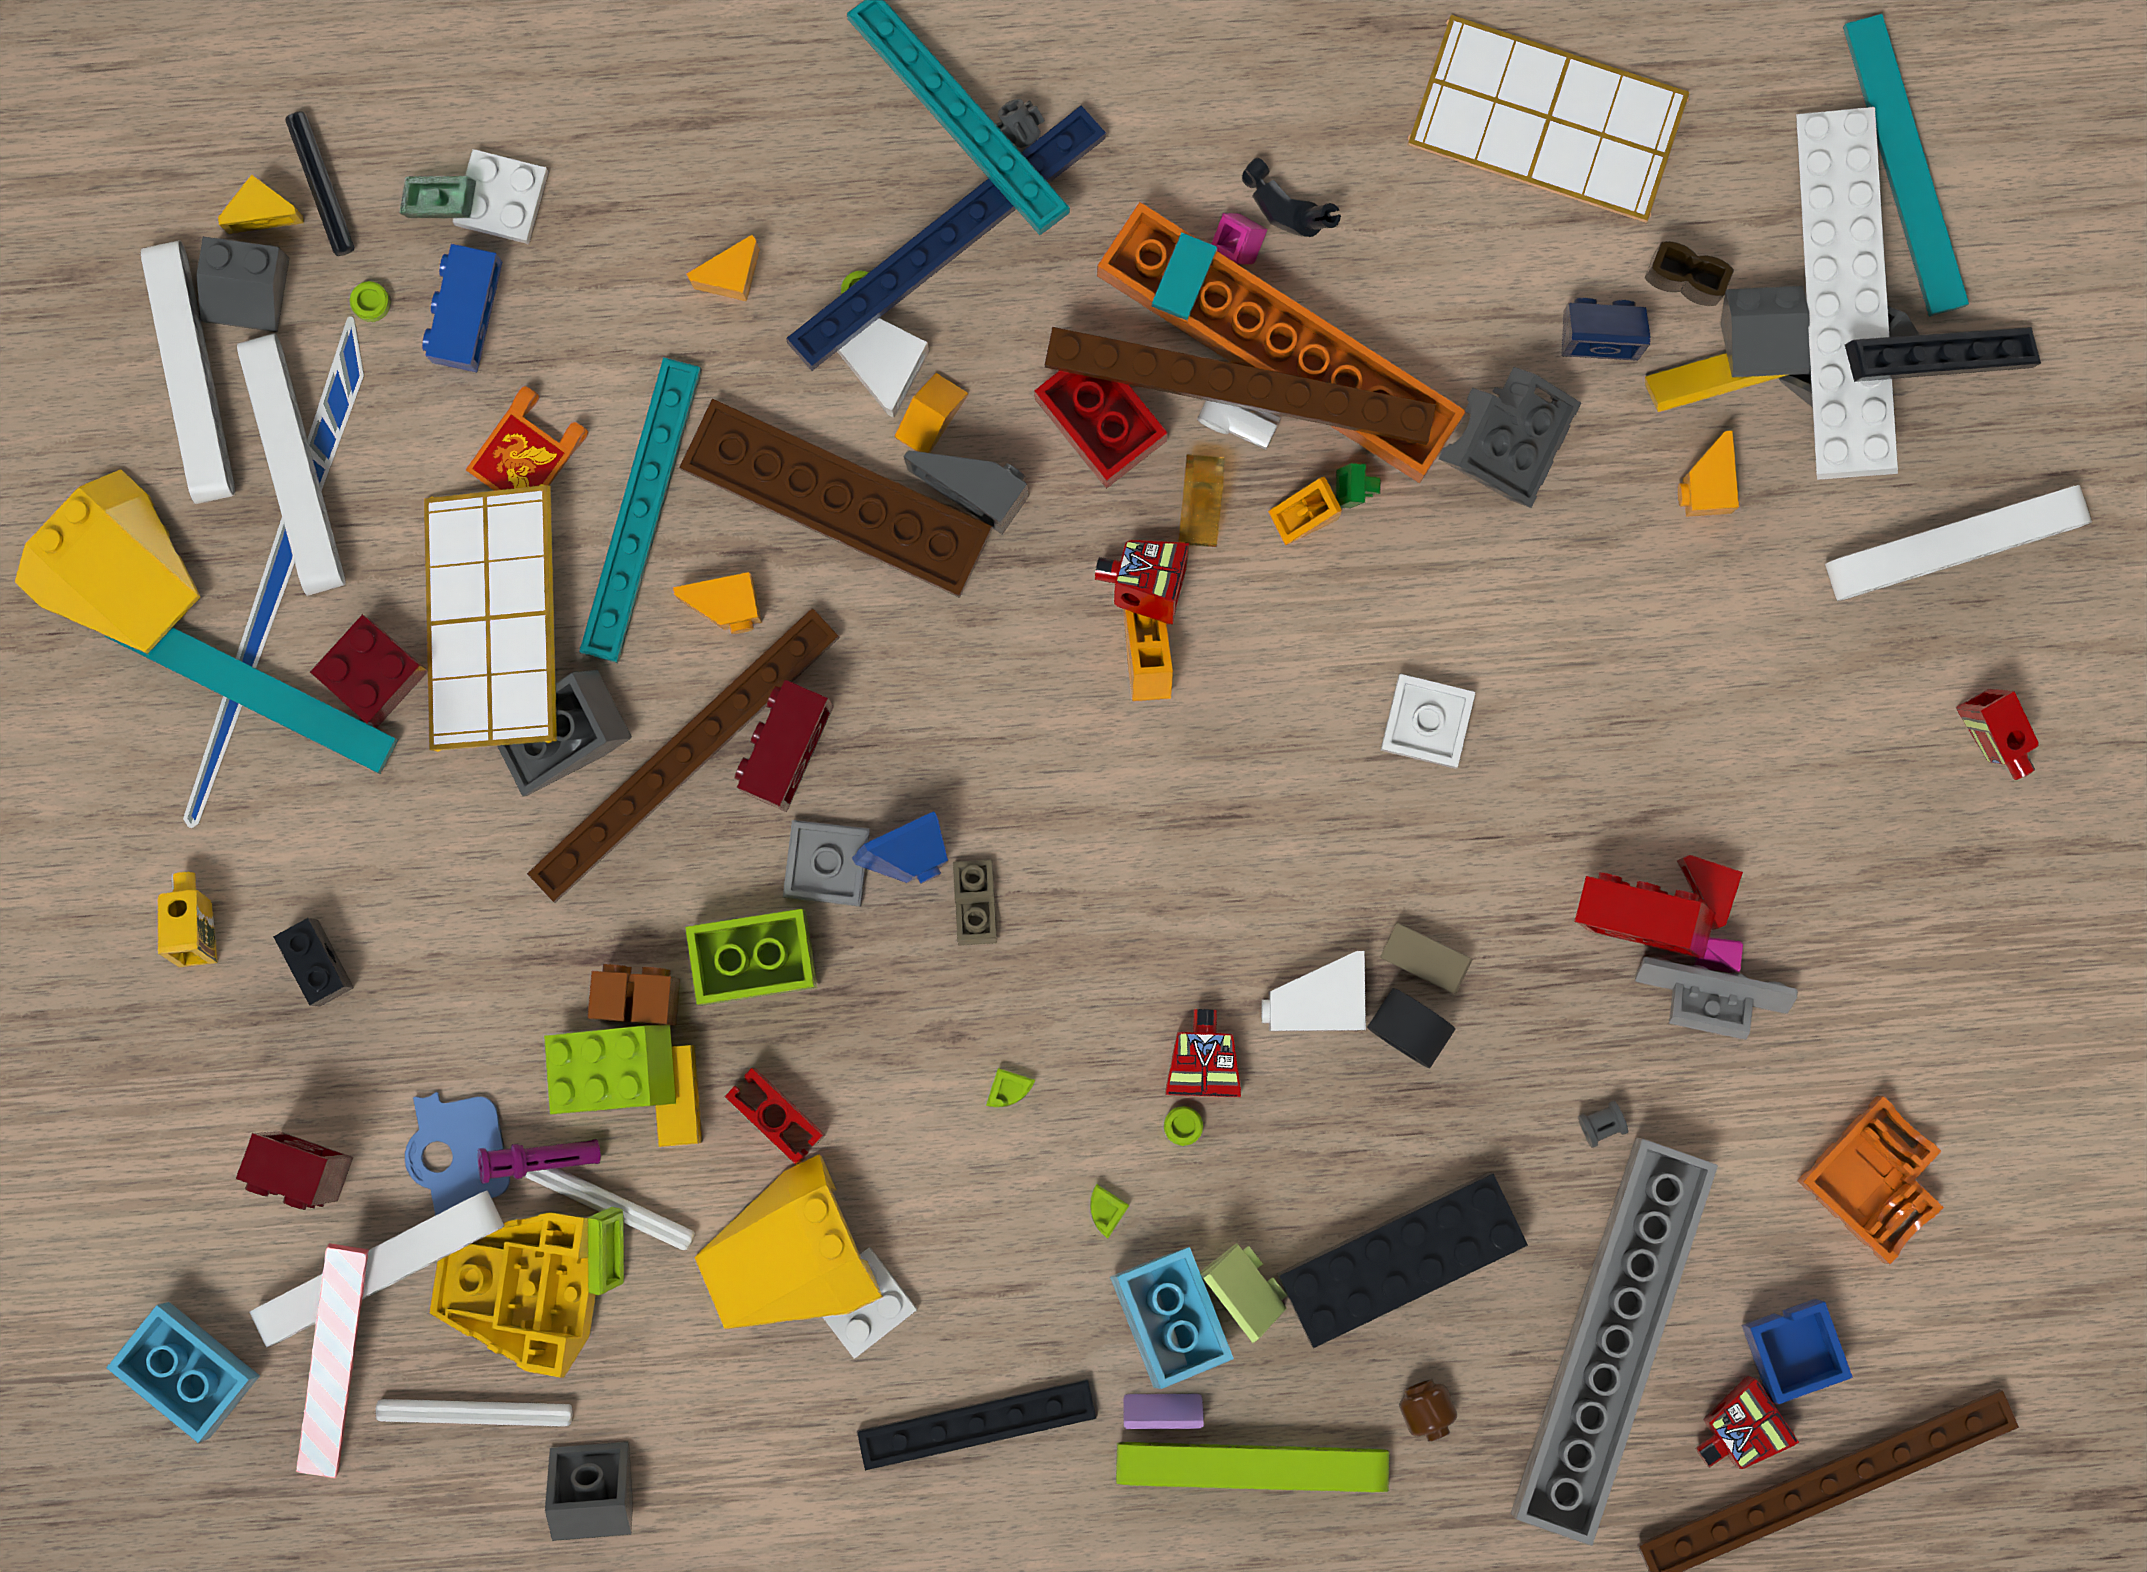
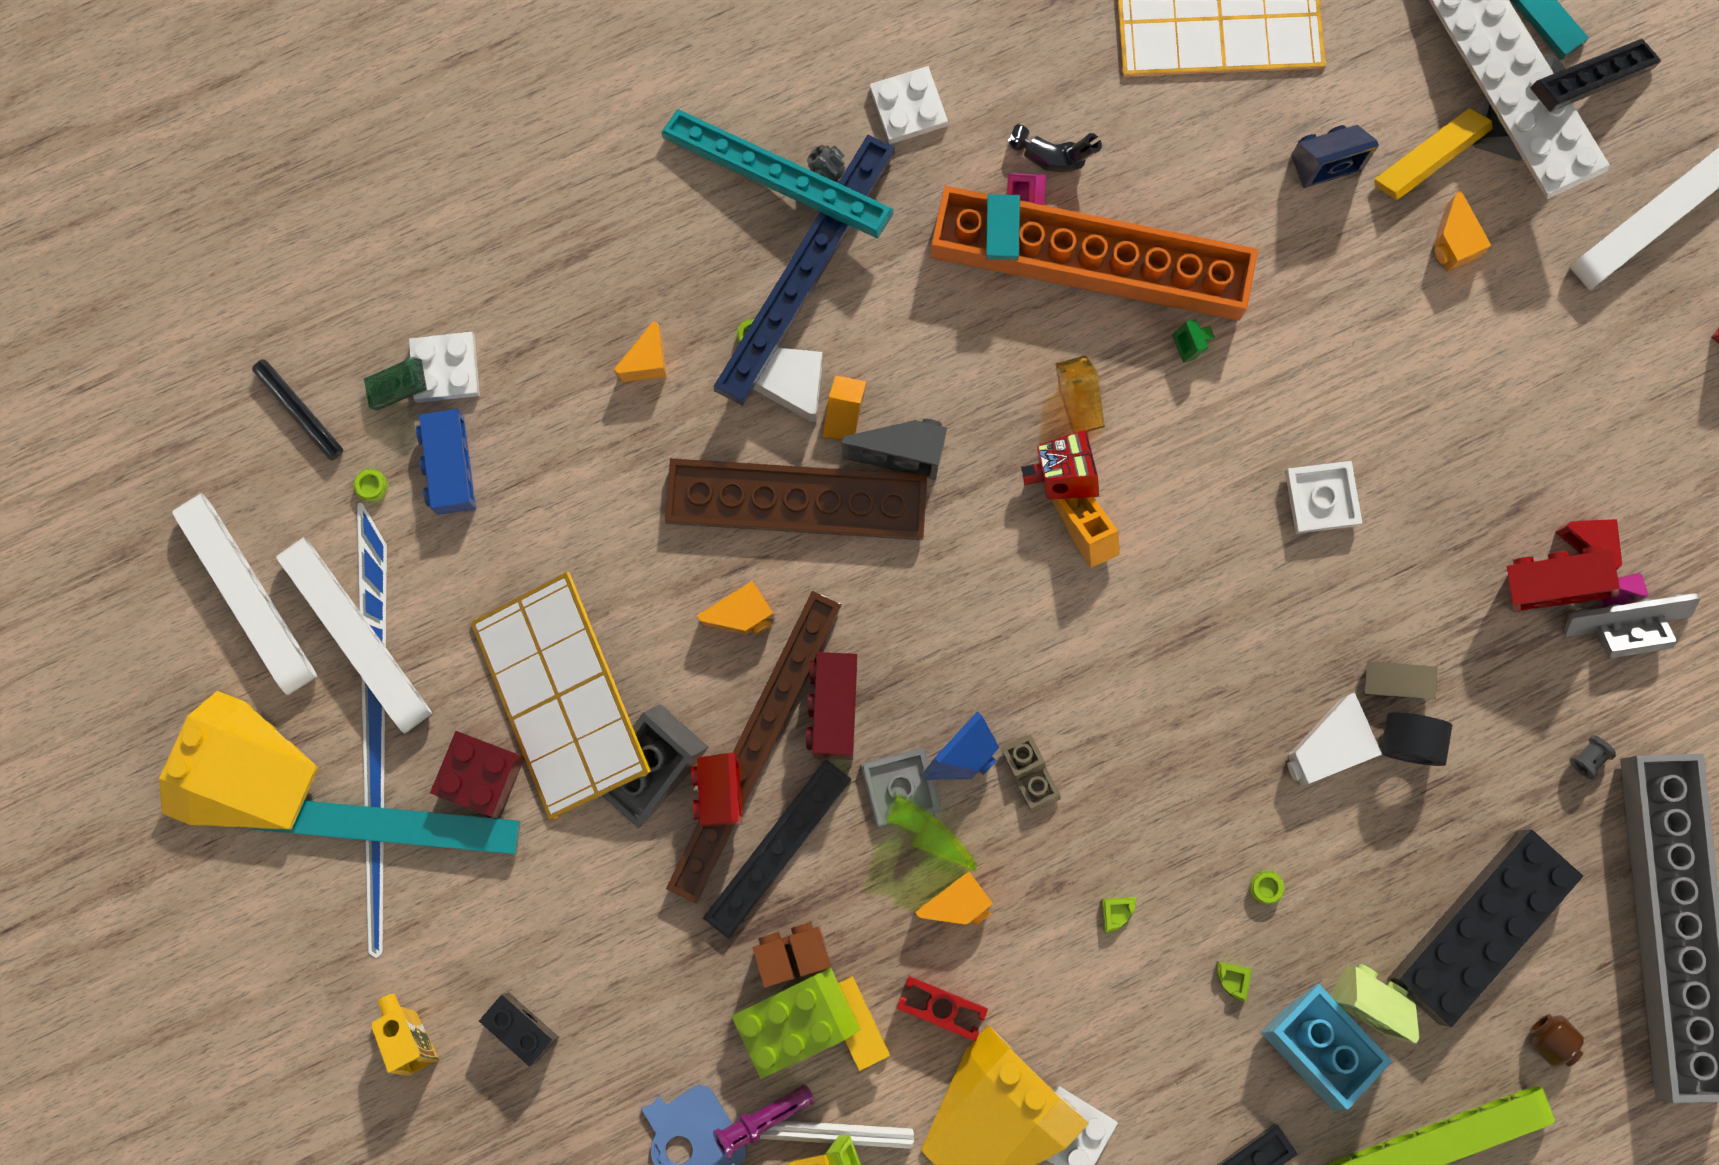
camera: 25 degrees left, 5 degrees down
(241, 283) = (262, 508): dark grey slope -> none
(257, 208) = (255, 445): yellow slope -> none
(522, 453) = (535, 556): flag -> none
(622, 789) = (718, 790): none -> red slope
(640, 510) = (646, 568): teal tile -> none
(665, 877) = (777, 849): none -> black tile
(751, 957) = (873, 886): lime brick -> none
(837, 922) = (928, 831): none -> clear neon green slope
(837, 1011) = (958, 903): none -> light orange slope
(1101, 422) = (978, 358): red brick -> none
(1144, 86) = (908, 105): none -> white plate
(1163, 1411) = (1348, 1127): lavender slope -> none
(1204, 1060) = (1263, 829): torso -> none
(1240, 386) = (1079, 293): reddish brown plate -> none
(1245, 423) = (1074, 321): white piece -> none
(1306, 511) = (1164, 372): light orange slope -> none
(1512, 436) = (1301, 254): dark grey piece -> none
(1697, 277) = (1377, 89): dark brown brick -> none
(1766, 331) = (1453, 109): dark grey slope -> none

